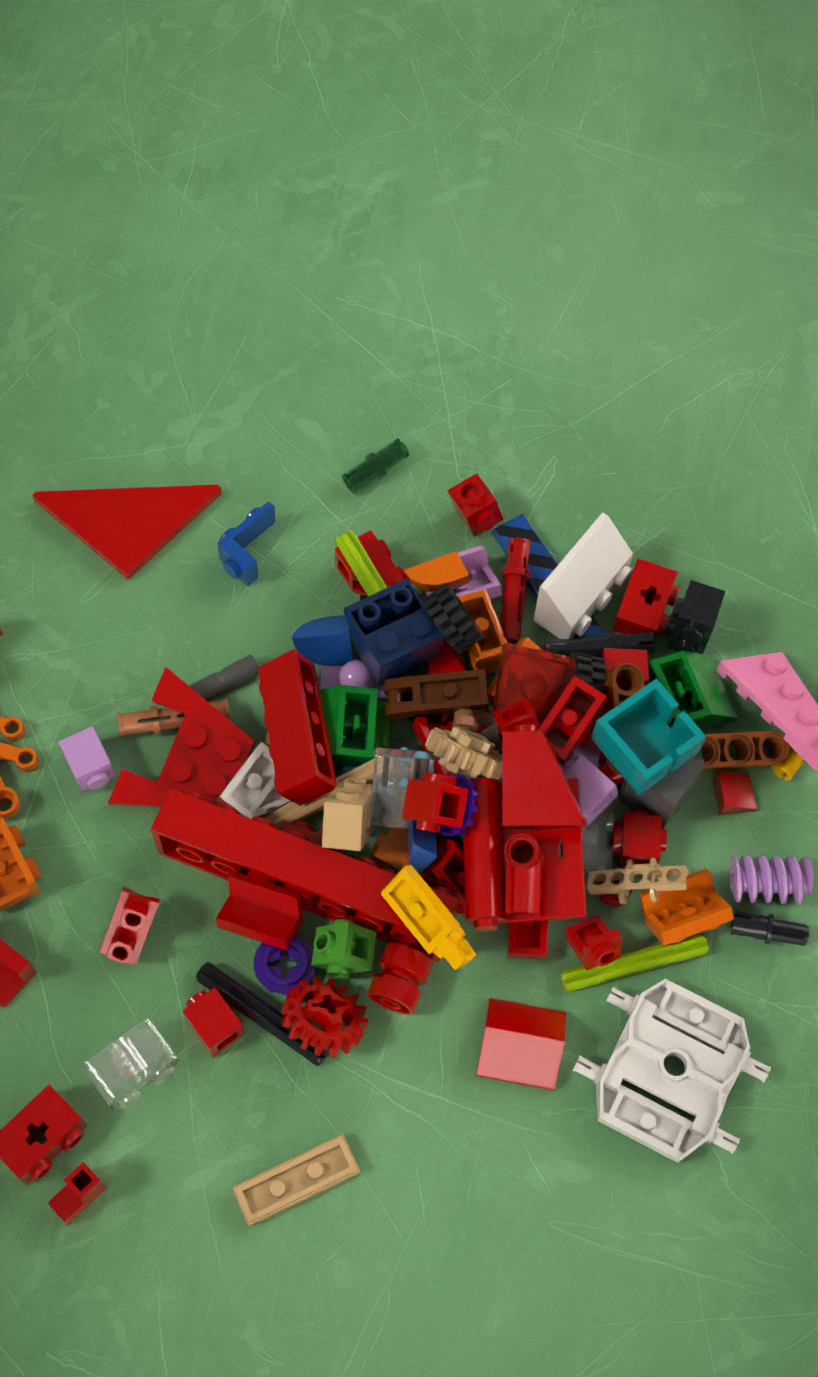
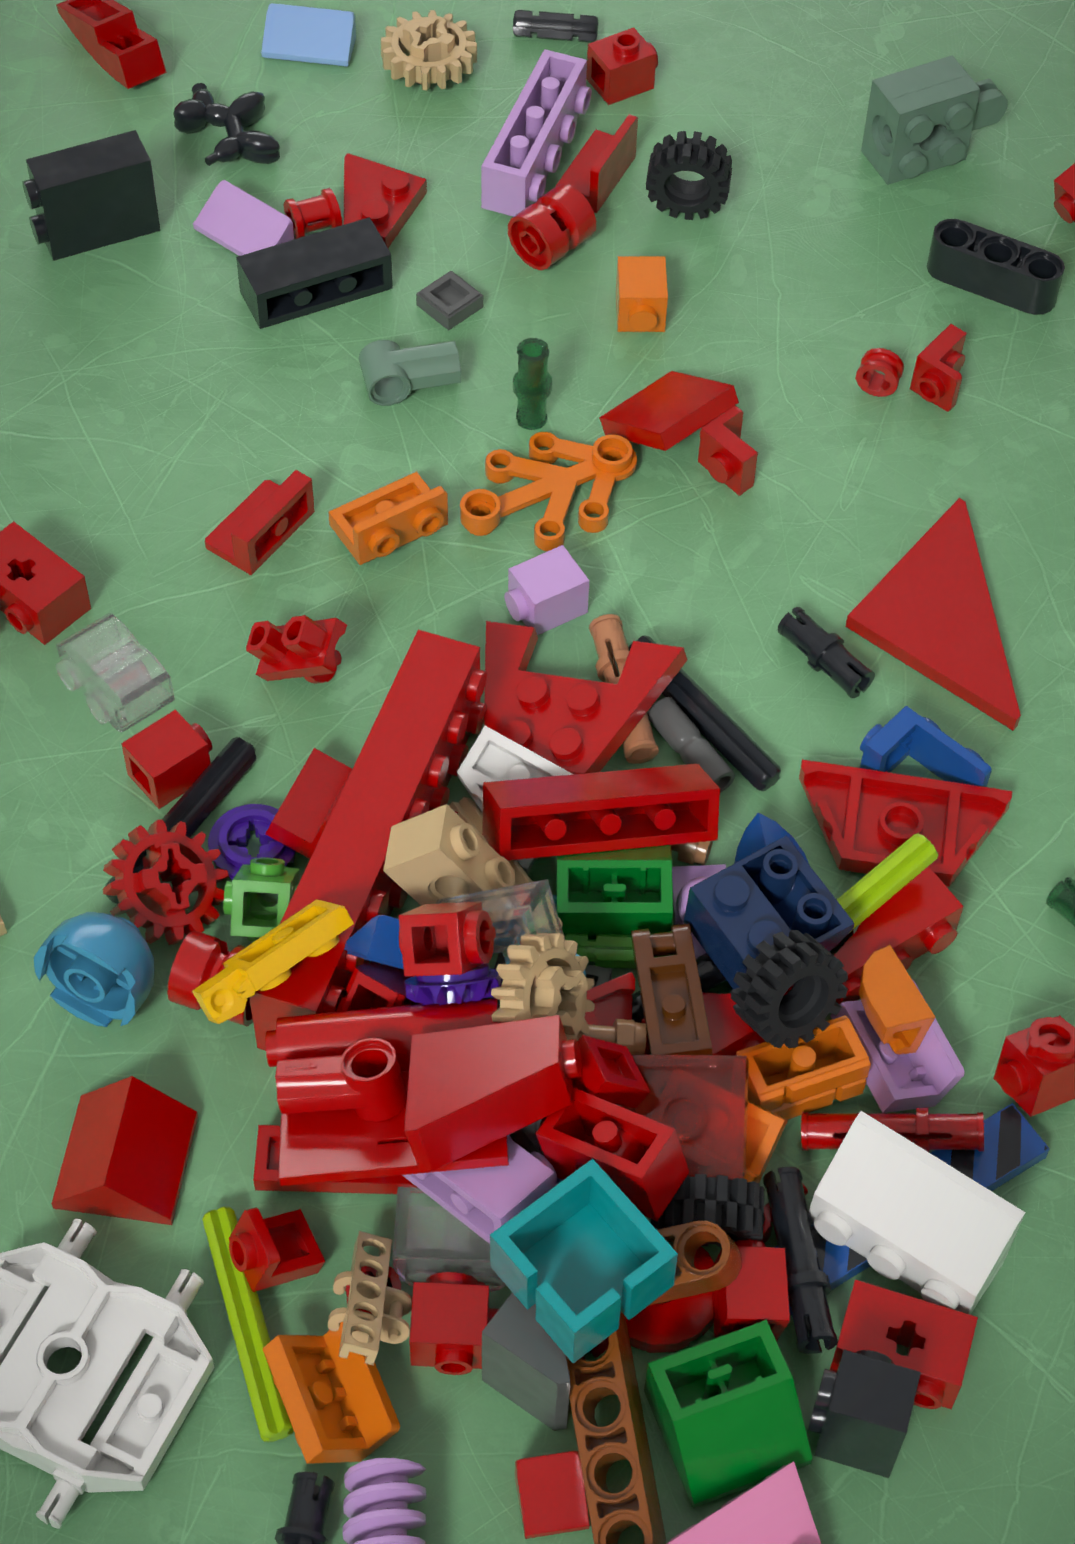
camera: 90 degrees right, 10 degrees down
(154, 591) = (826, 652): none -> black pin
(204, 664) = (721, 730): none -> black axle
(293, 564) = (875, 812): none -> red wing
(390, 1056) = (97, 967): none -> dark azure cylinder

